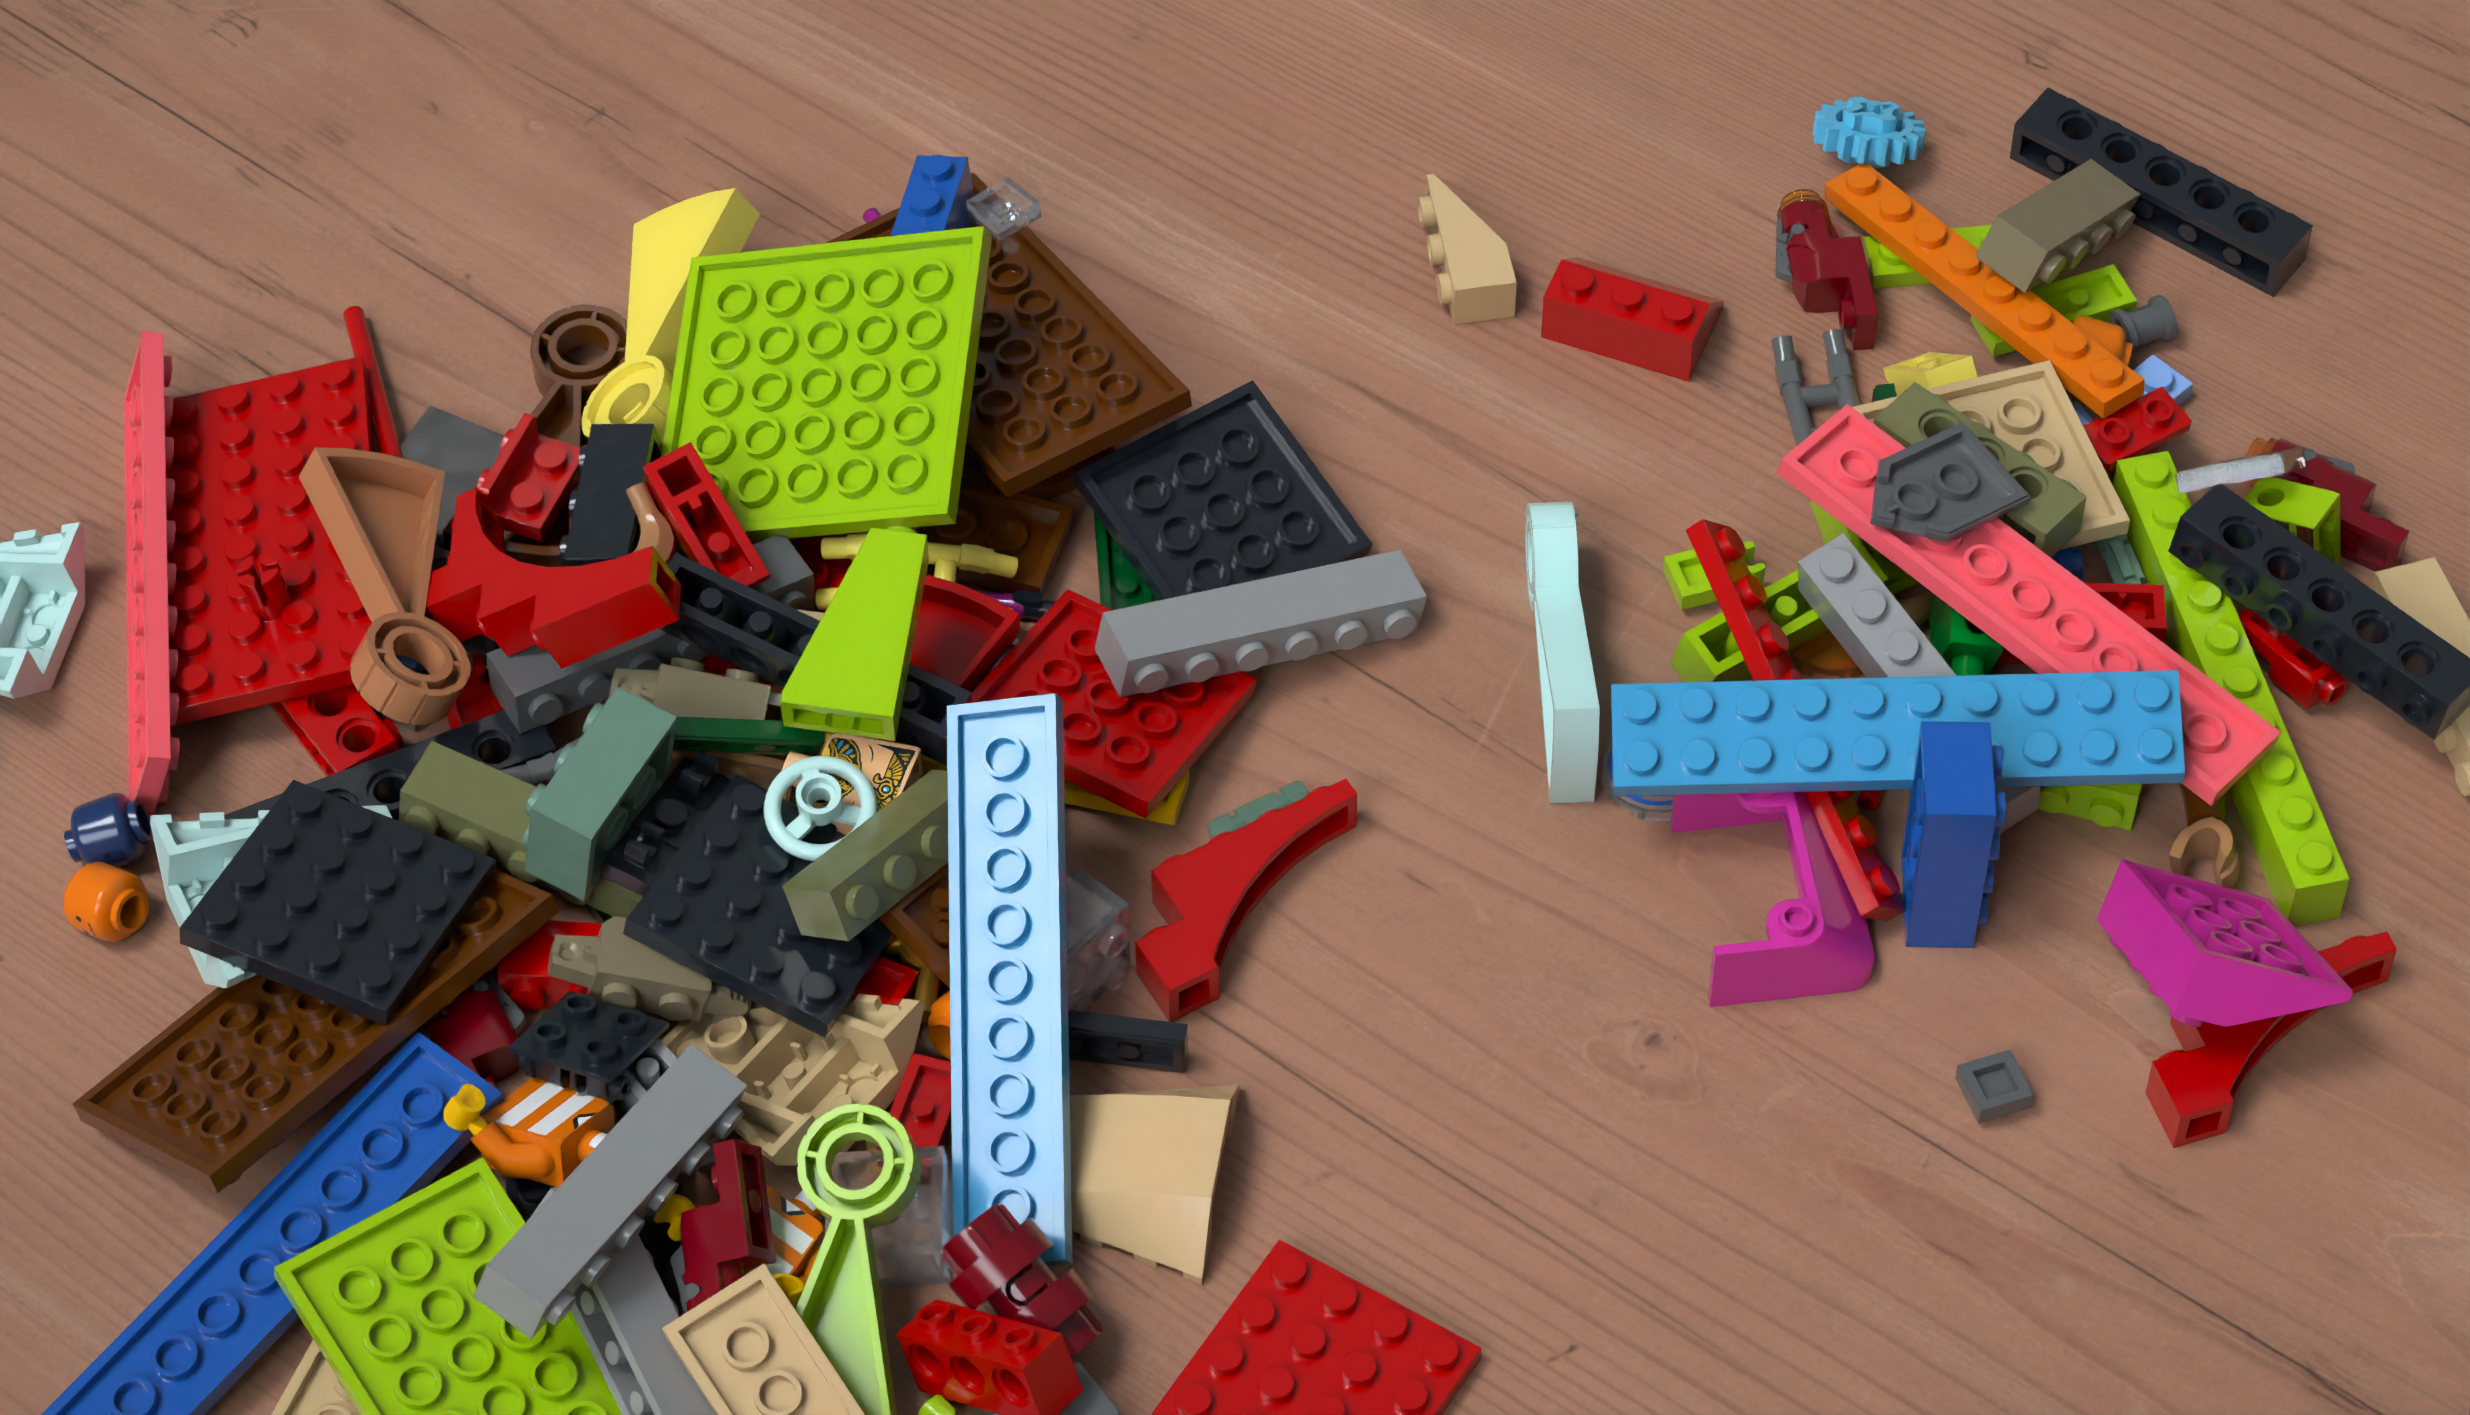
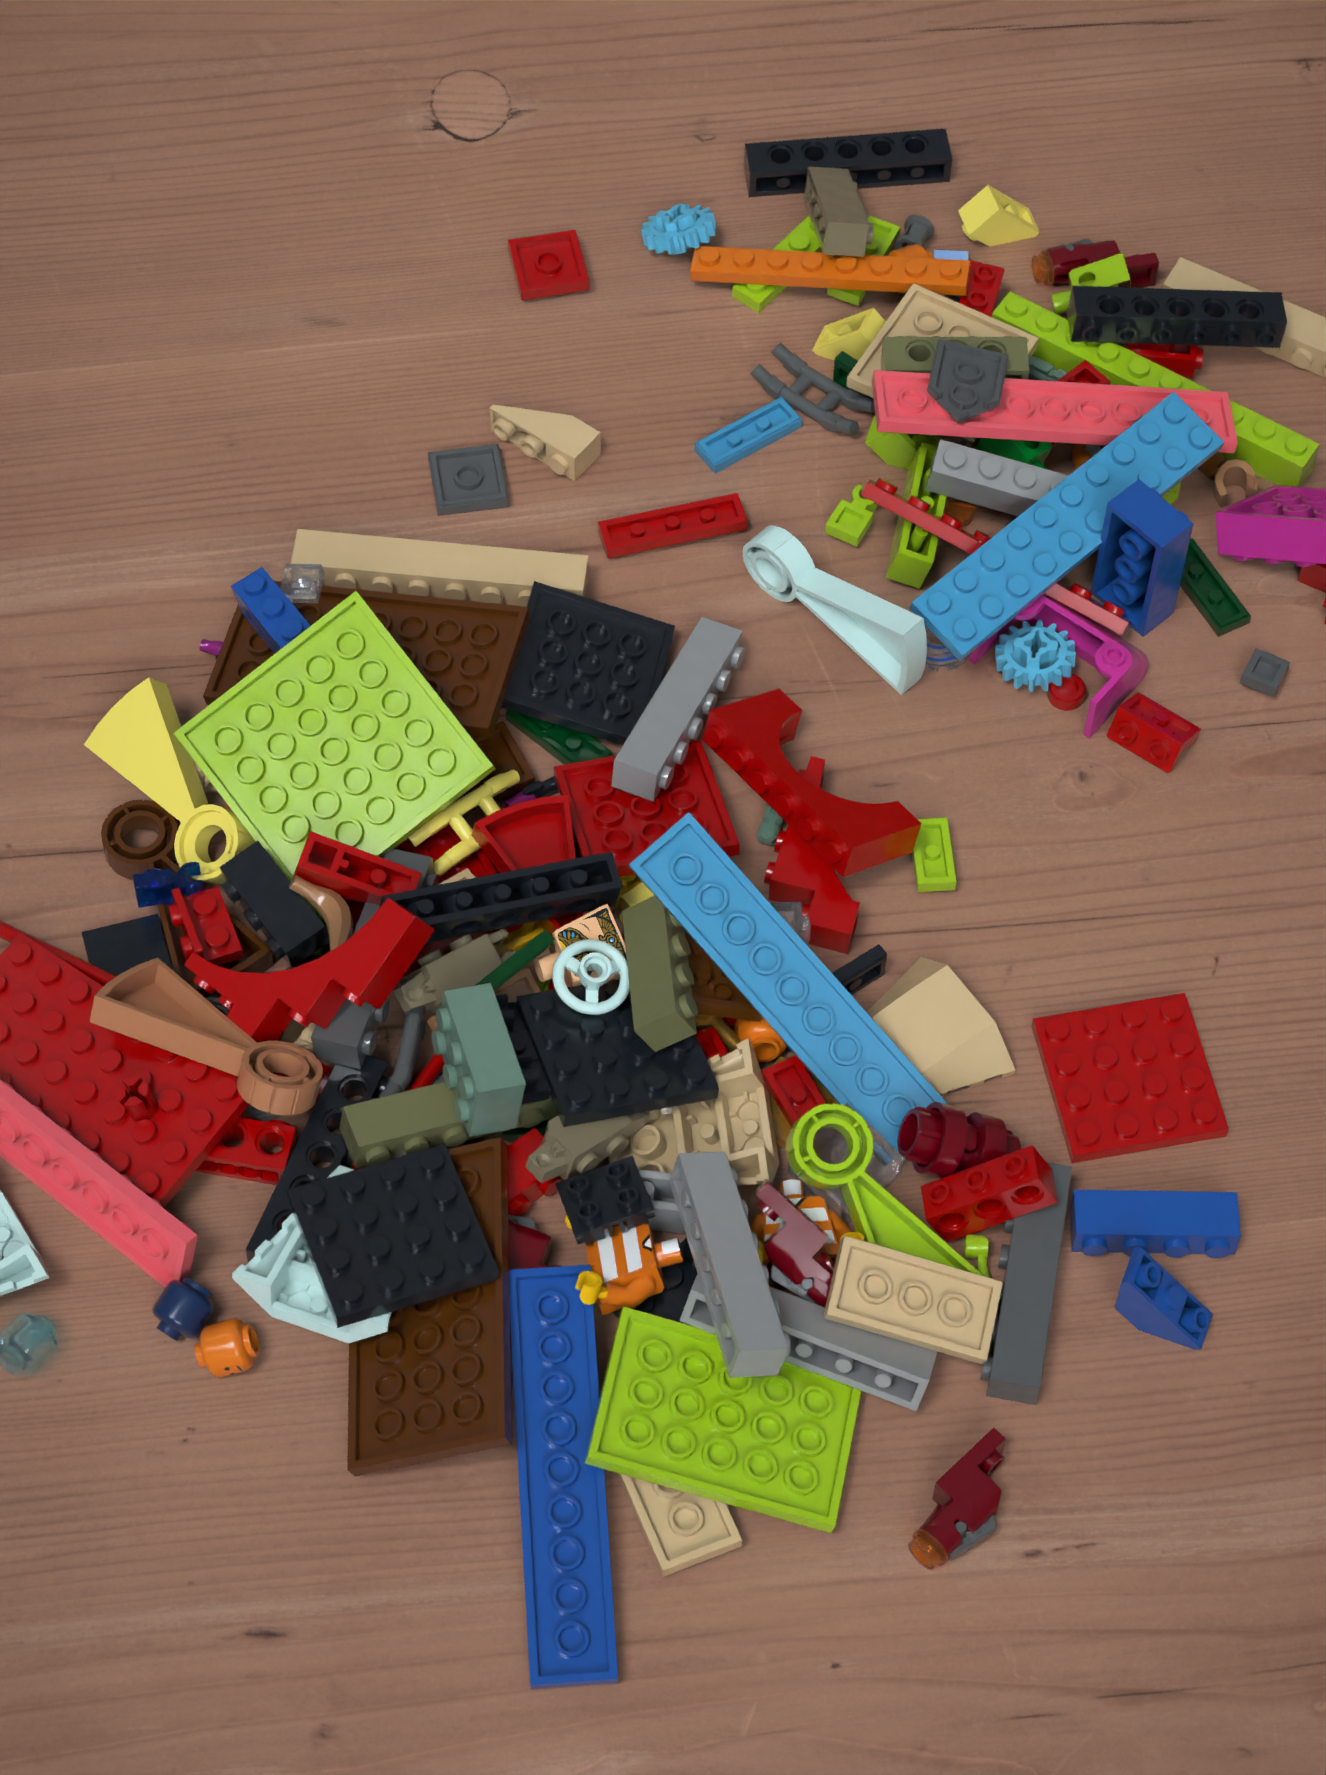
camera: 45 degrees left, 5 degrees up
(521, 396) = (155, 885): none -> clear blue plate
(863, 646) = (541, 864): lime slope -> none
(1187, 304) = (438, 567): none -> tan brick
(1269, 870) = (840, 830): none -> red arch
(1336, 241) = (468, 479): none -> dark grey tile
(1372, 987) = (934, 857): none -> lime plate
(1496, 440) = (672, 525): none -> red plate
(1628, 317) = (666, 411): red slope -> none
(1682, 75) = (548, 265): none -> red plate
(1700, 407) = (748, 435): none -> dark azure tile
(1737, 867) = (1017, 656): none -> medium azure gear
(1737, 926) = (1068, 695): none -> red tile
(1783, 1047) = (1152, 731): none -> red bracket
(1823, 268) = (734, 317): dark red plate -> none
(2042, 946) = (1211, 593): none -> dark green tile
(2240, 469) = (1058, 275): clear smoke tile -> none
(2270, 370) = (996, 218): none -> light yellow slope

